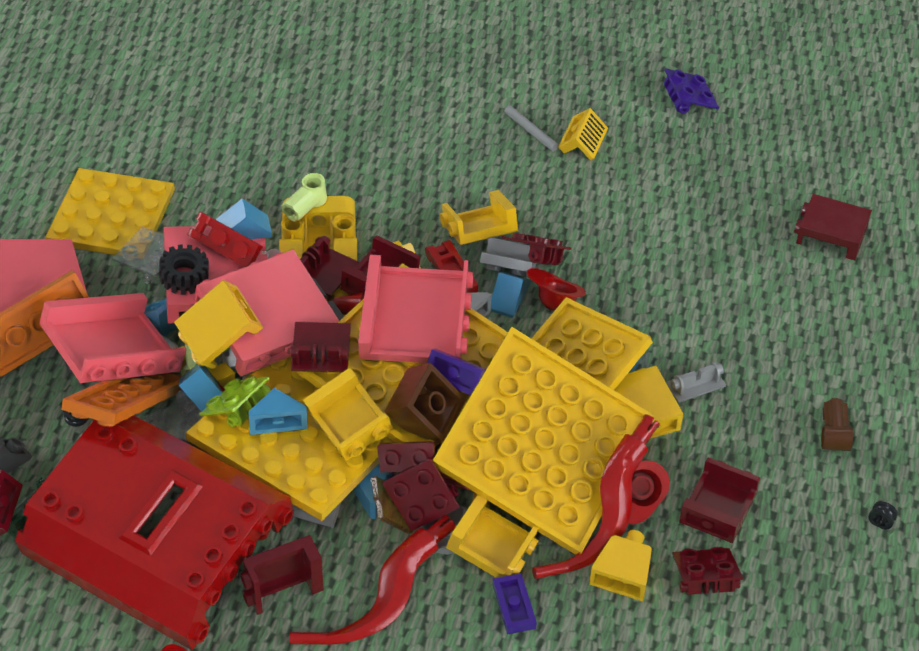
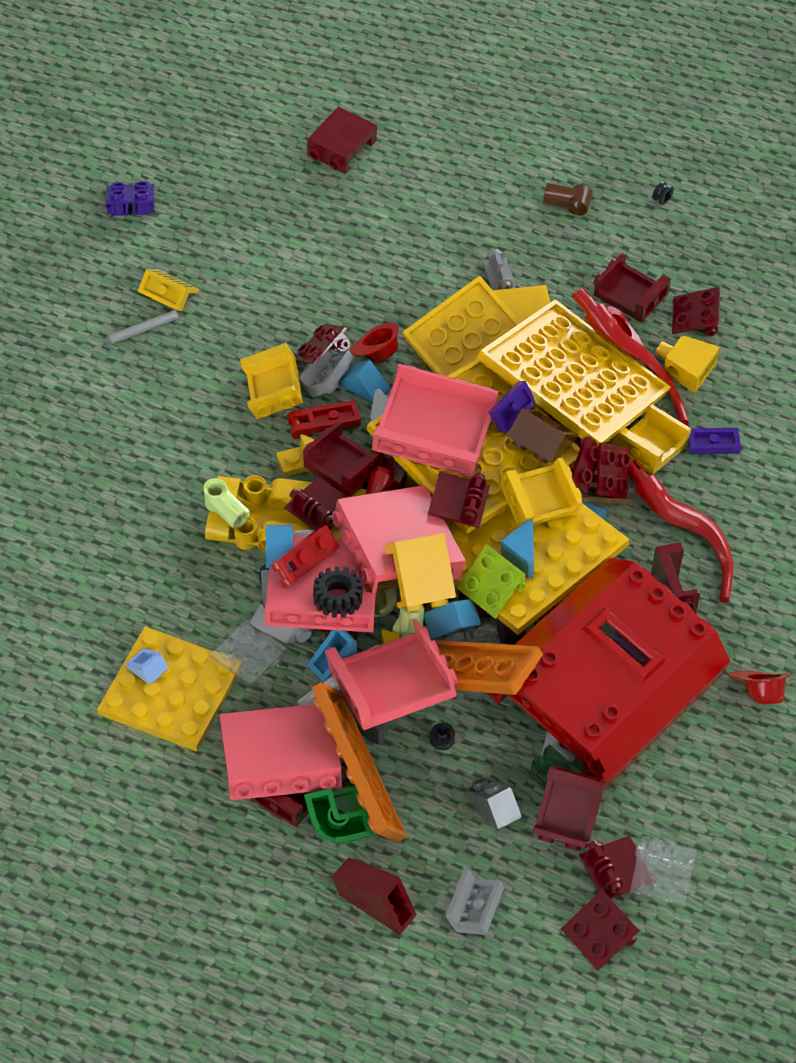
camera: 80 degrees left, 5 degrees up
(122, 186) = (147, 665): none -> light blue slope

